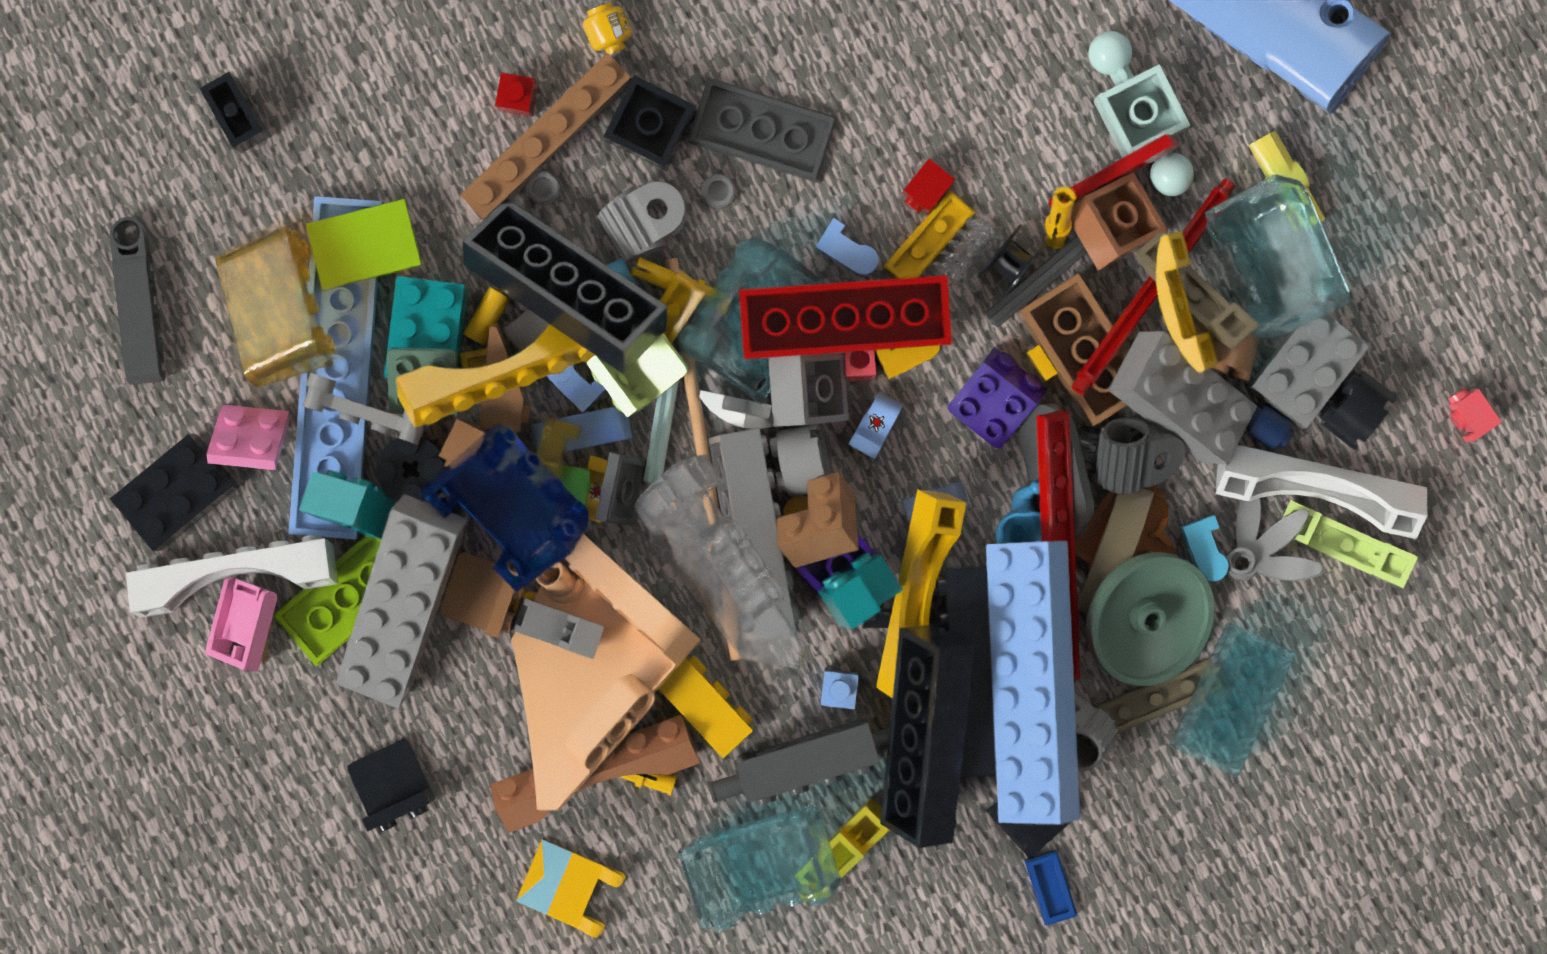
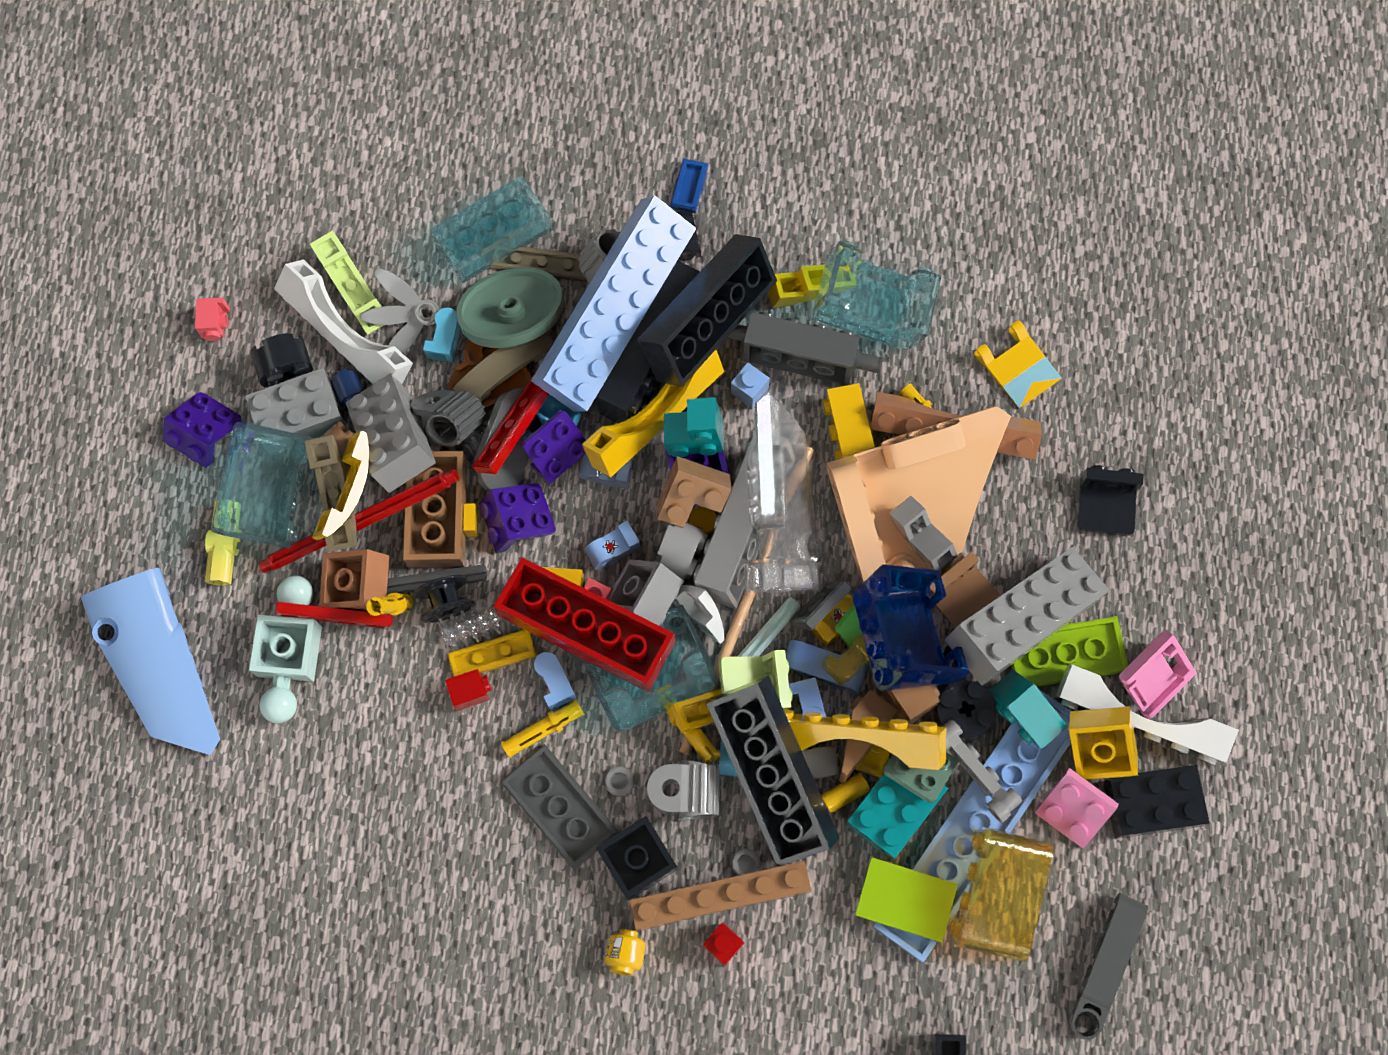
camera: 140 degrees left, 15 degrees down
(255, 516) = (1103, 743): none -> yellow brick
(821, 208) = (542, 728): none -> yellow pin
(997, 490) = (554, 446): none -> dark purple bracket
(1399, 289) = (198, 426): none -> dark purple bracket

